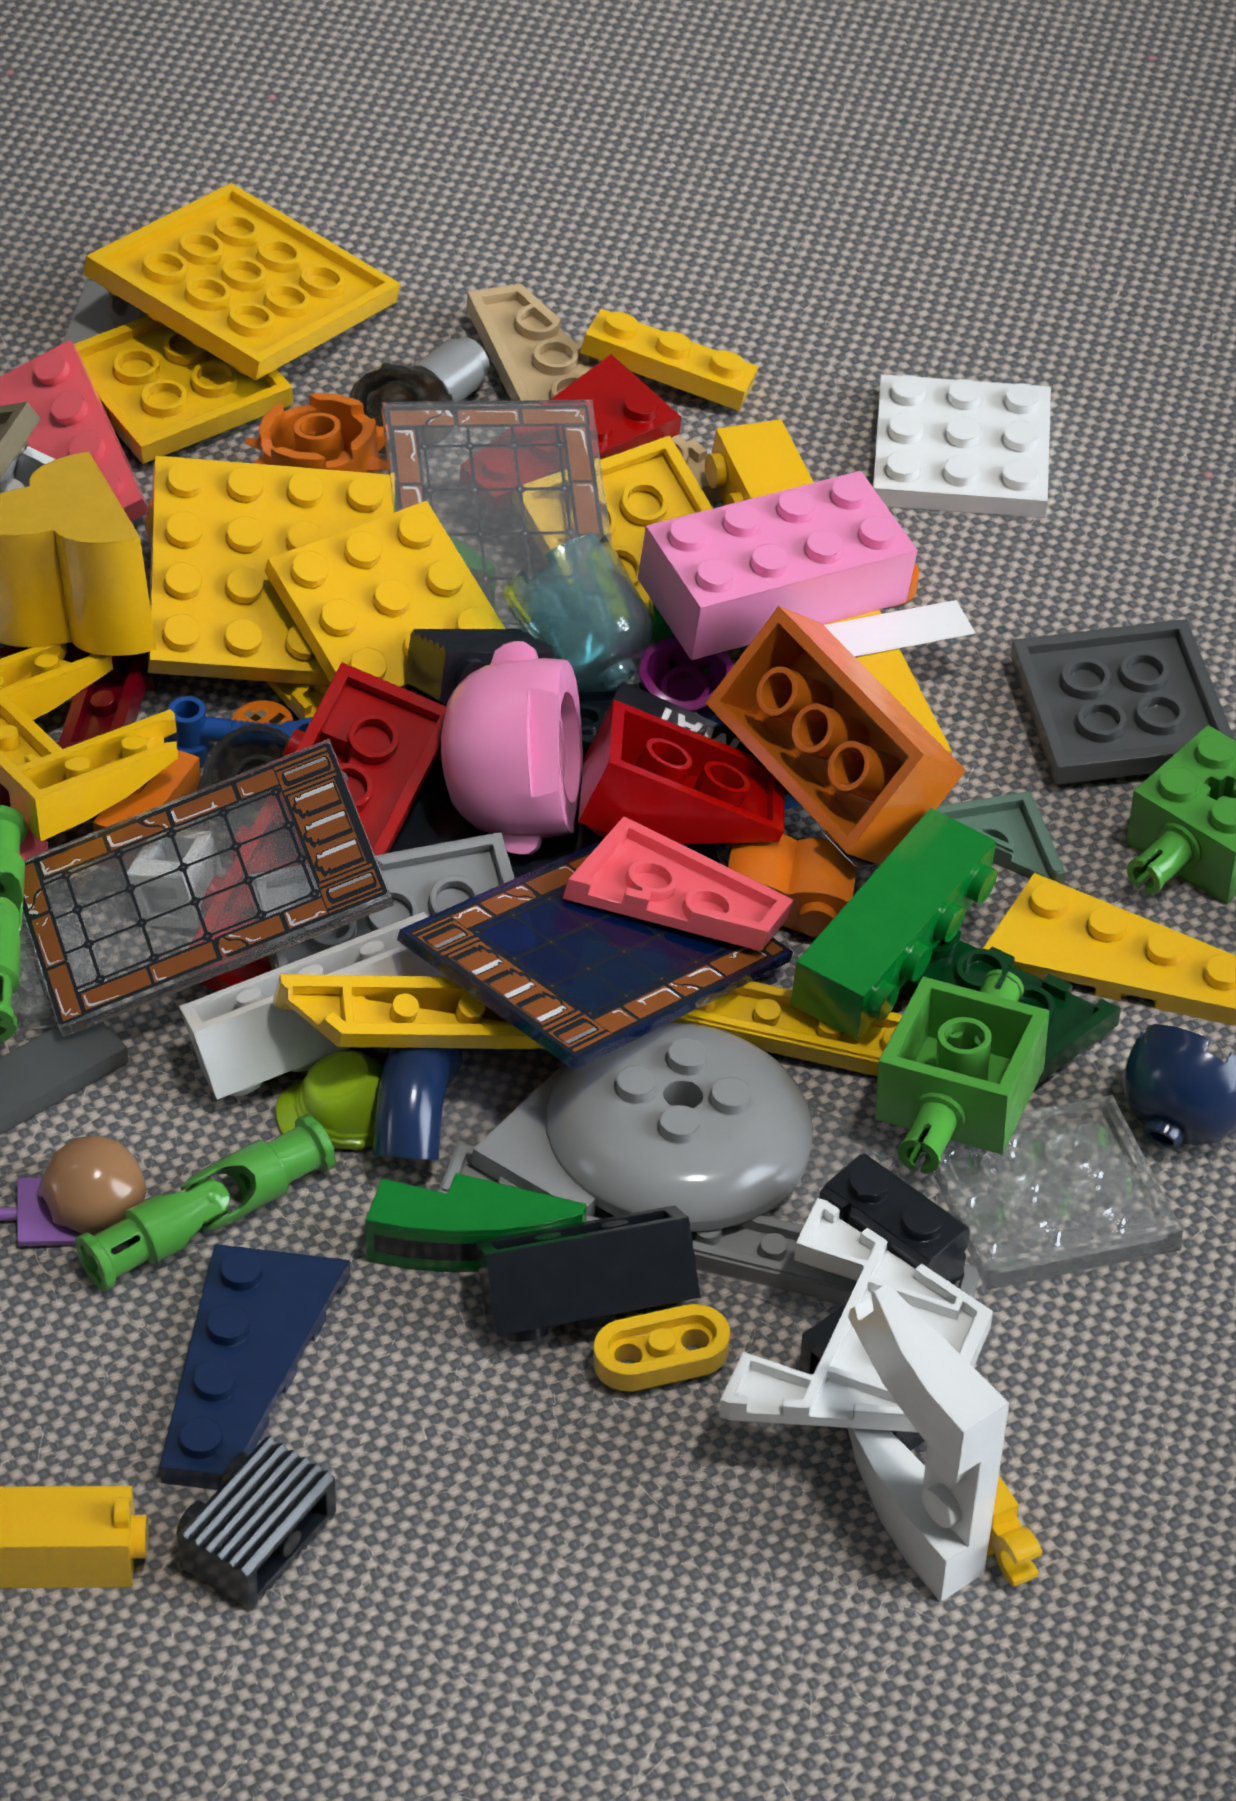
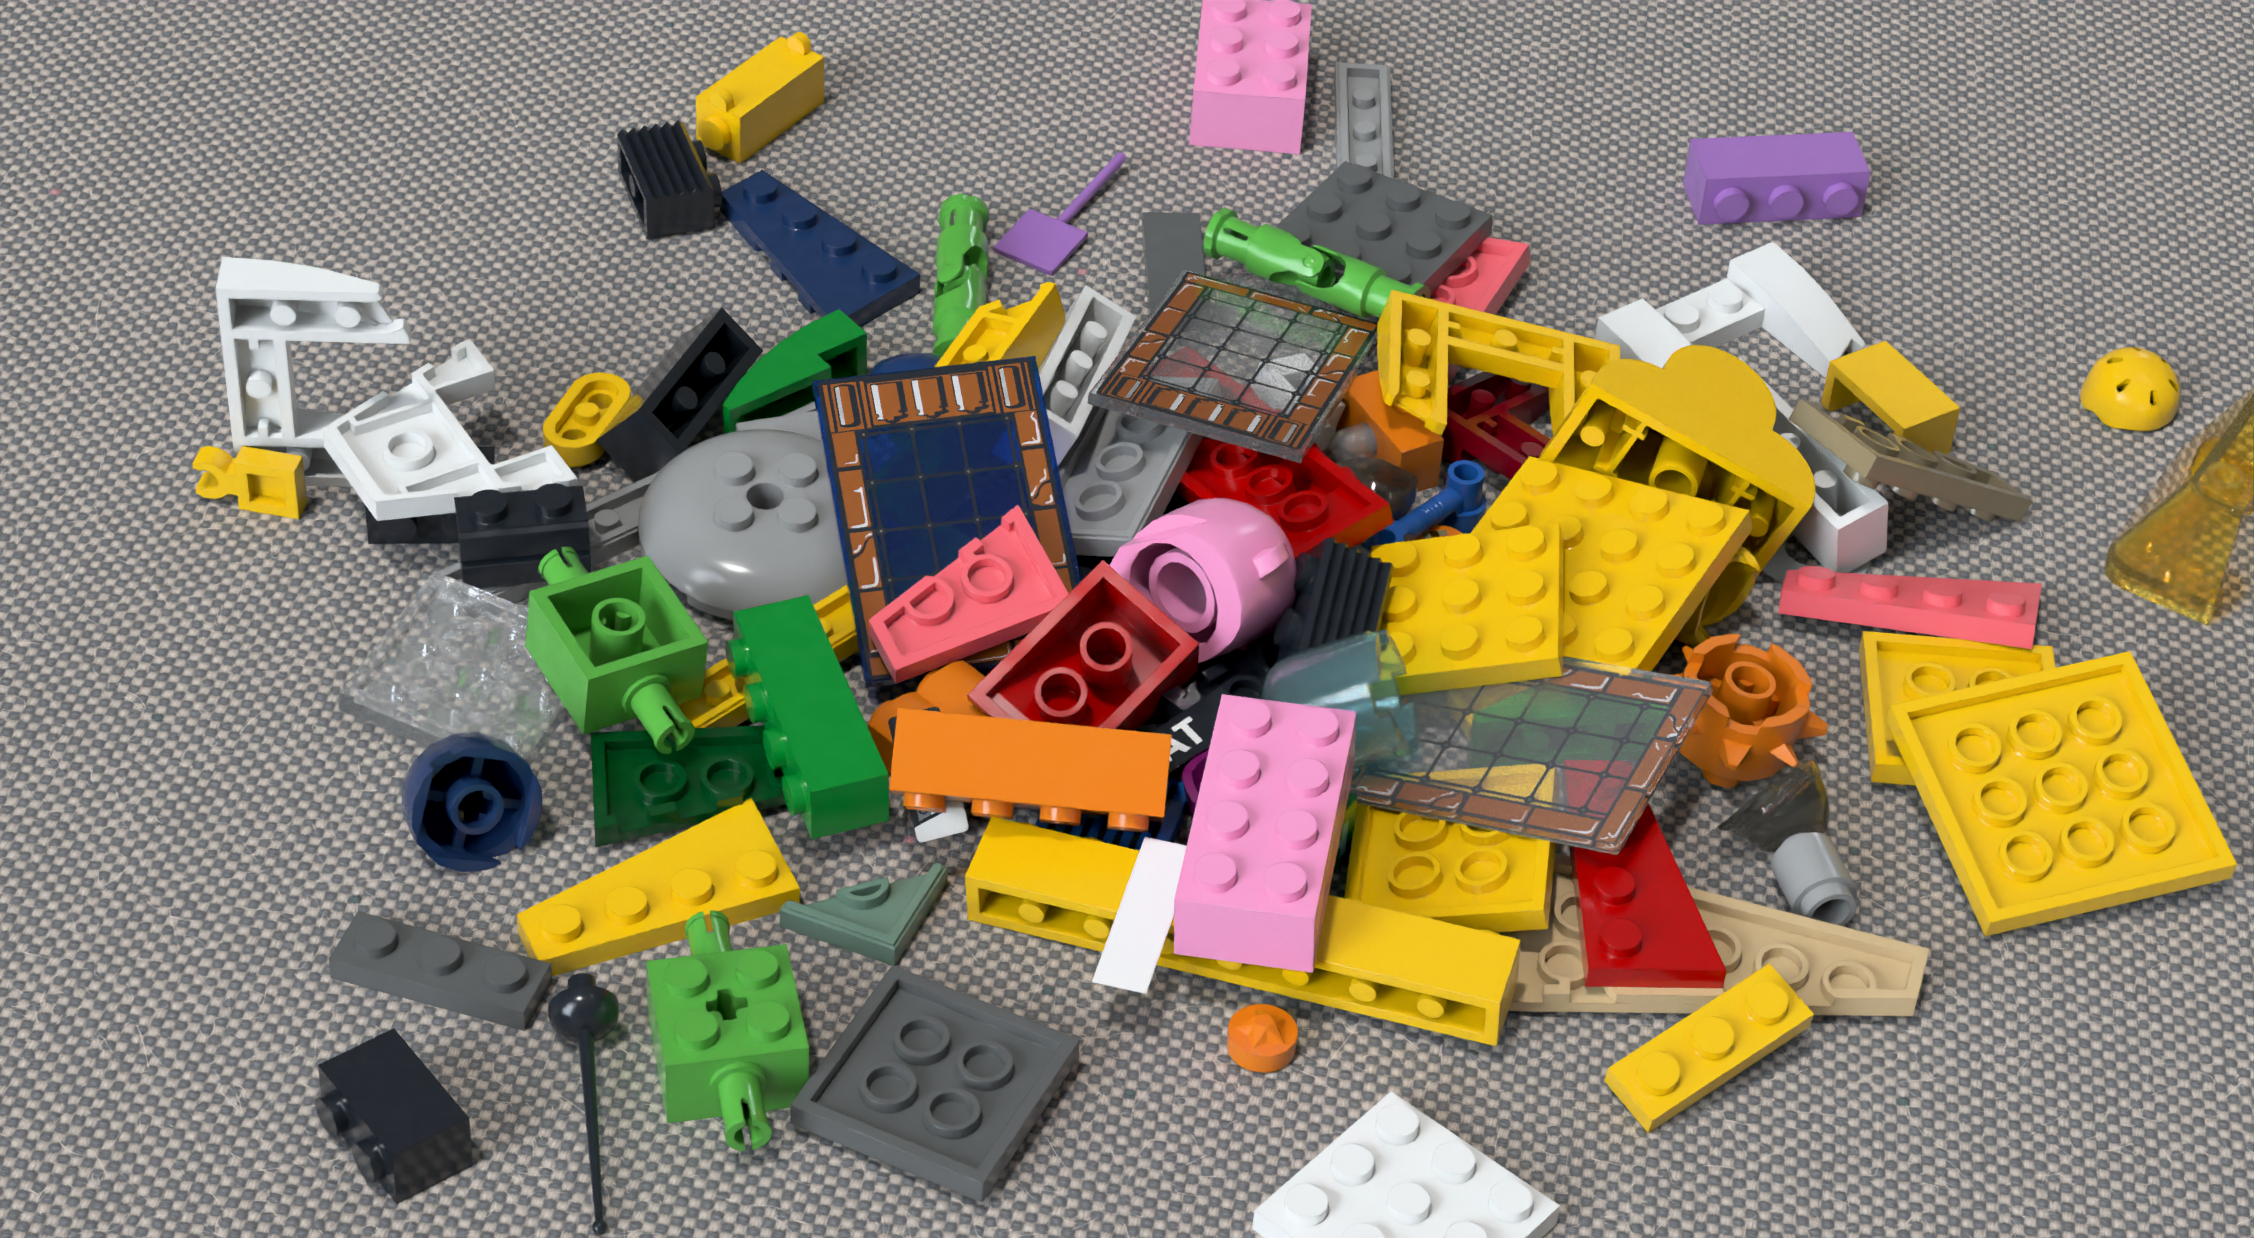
camera: 125 degrees right, 5 degrees down
(91, 1184) = (1035, 245): medium nougat hair -> none

